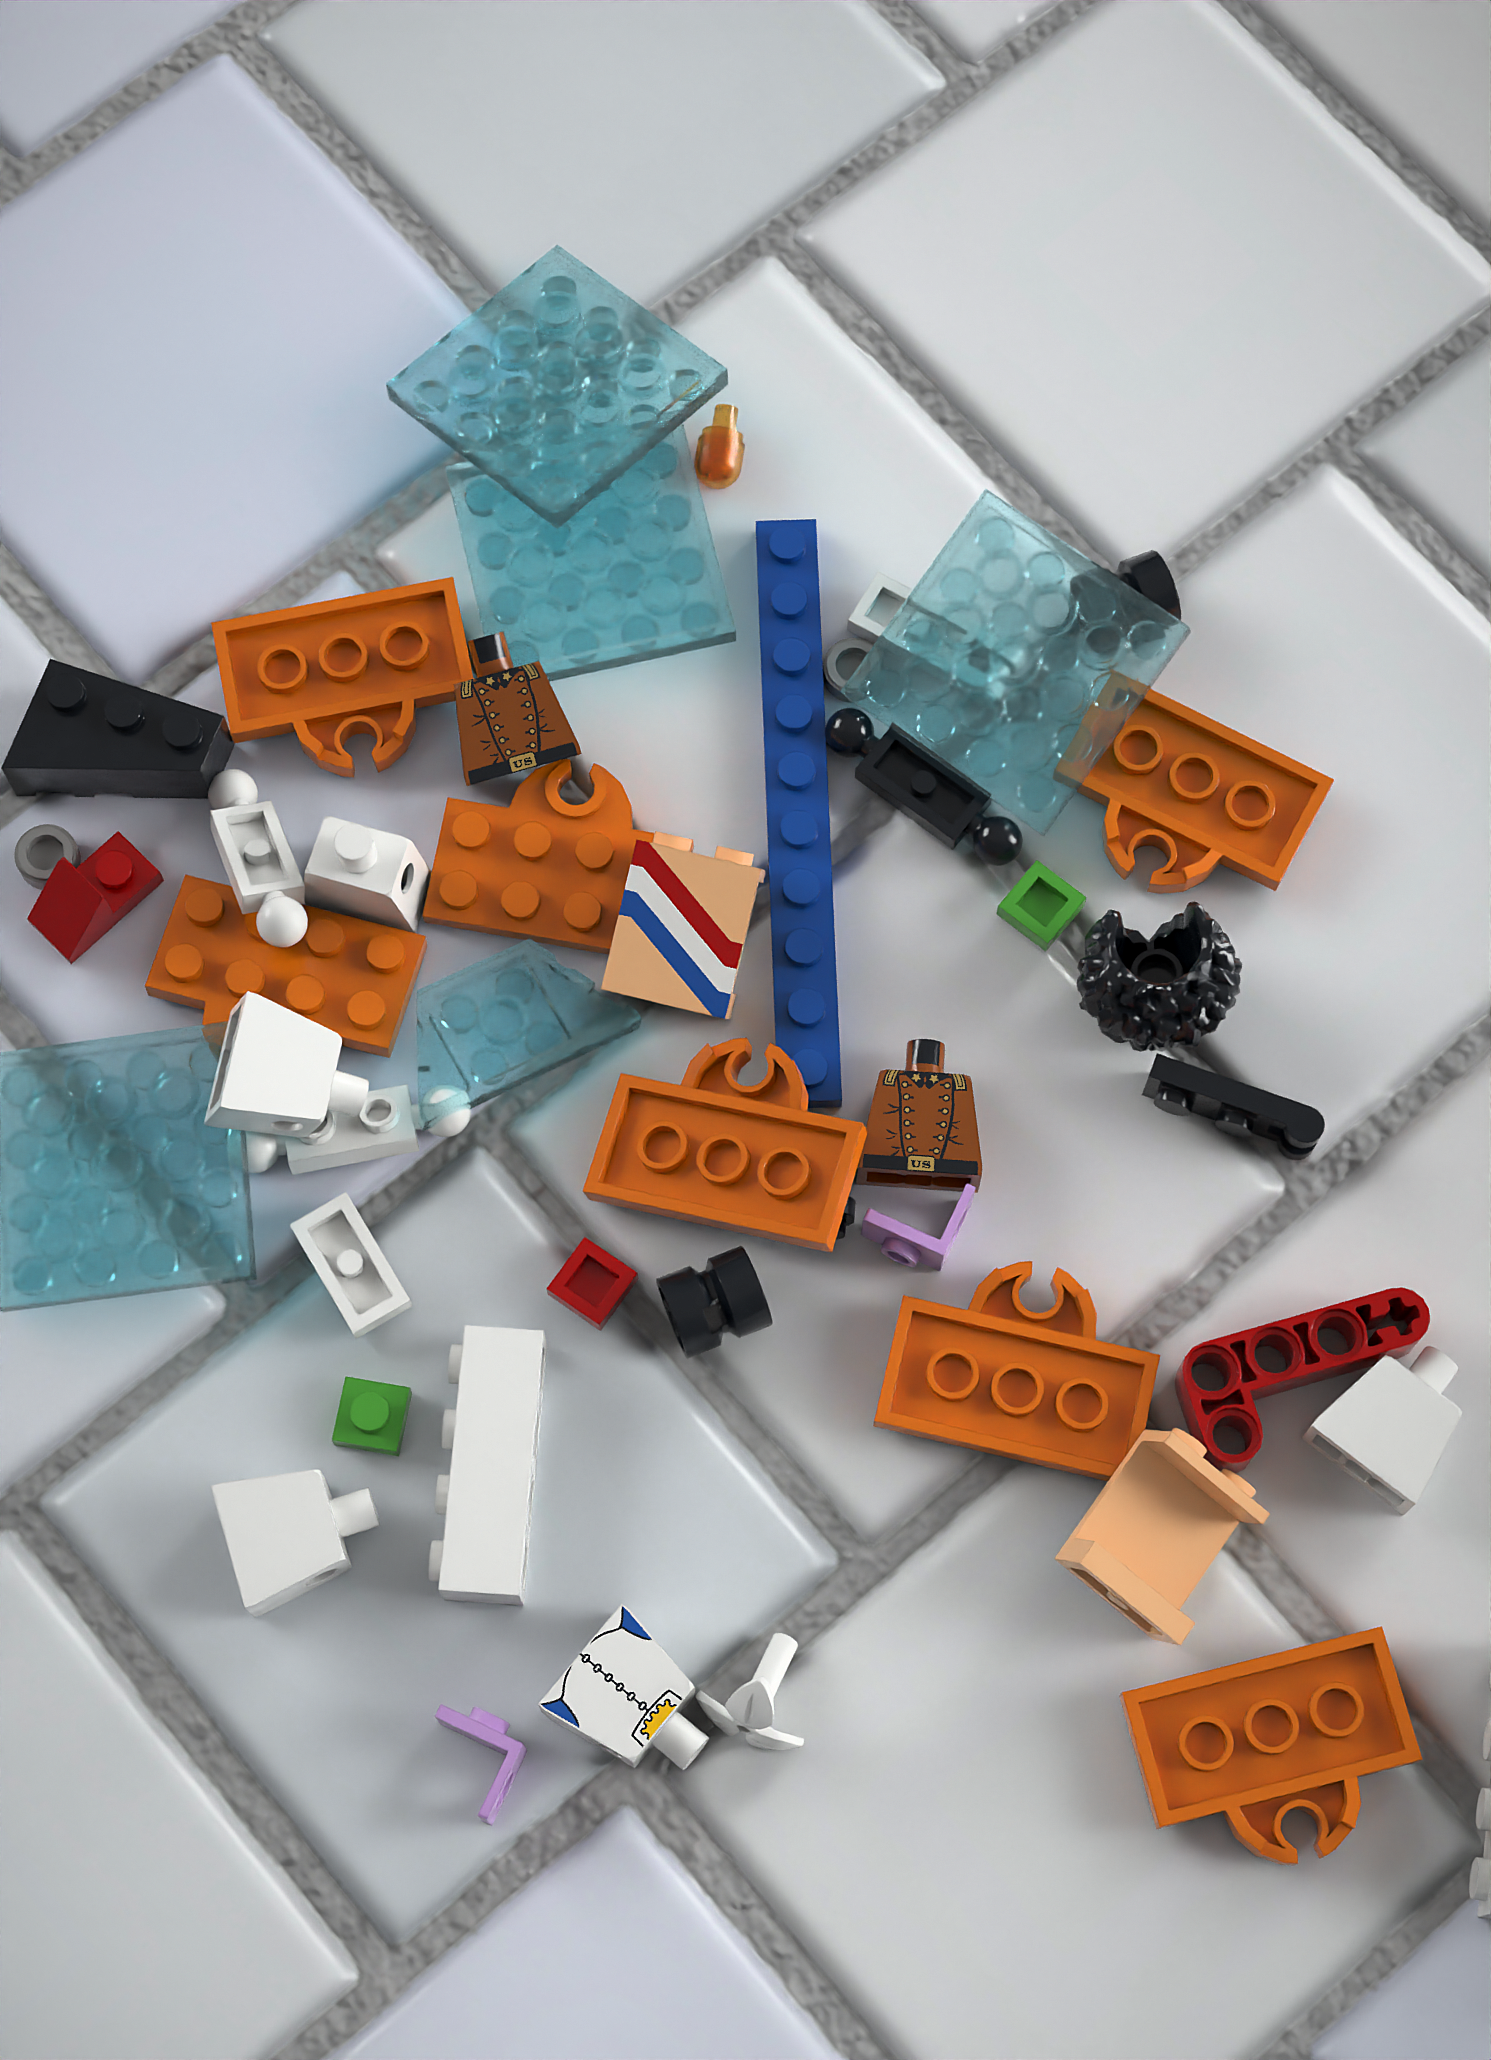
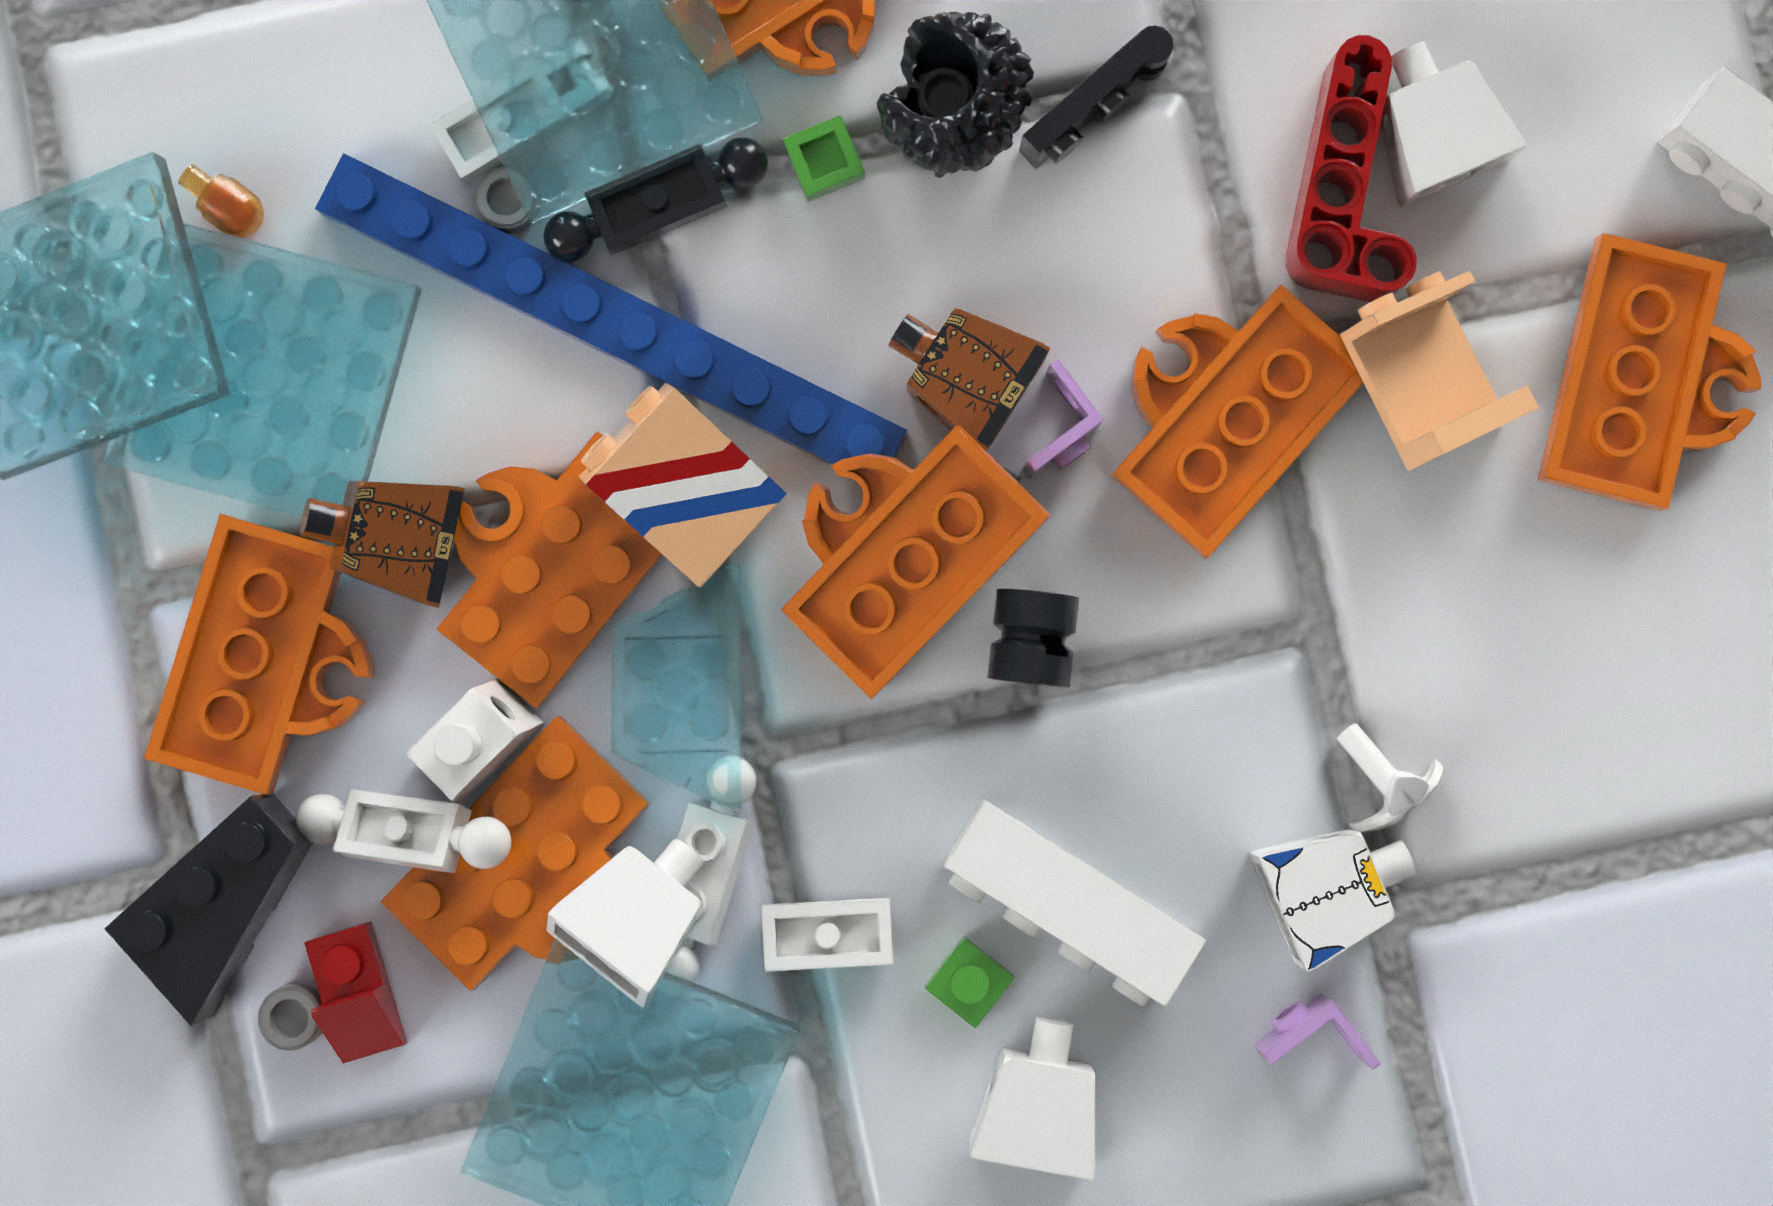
camera: 60 degrees left, 15 degrees up
(592, 1283) = (956, 733): red plate -> none

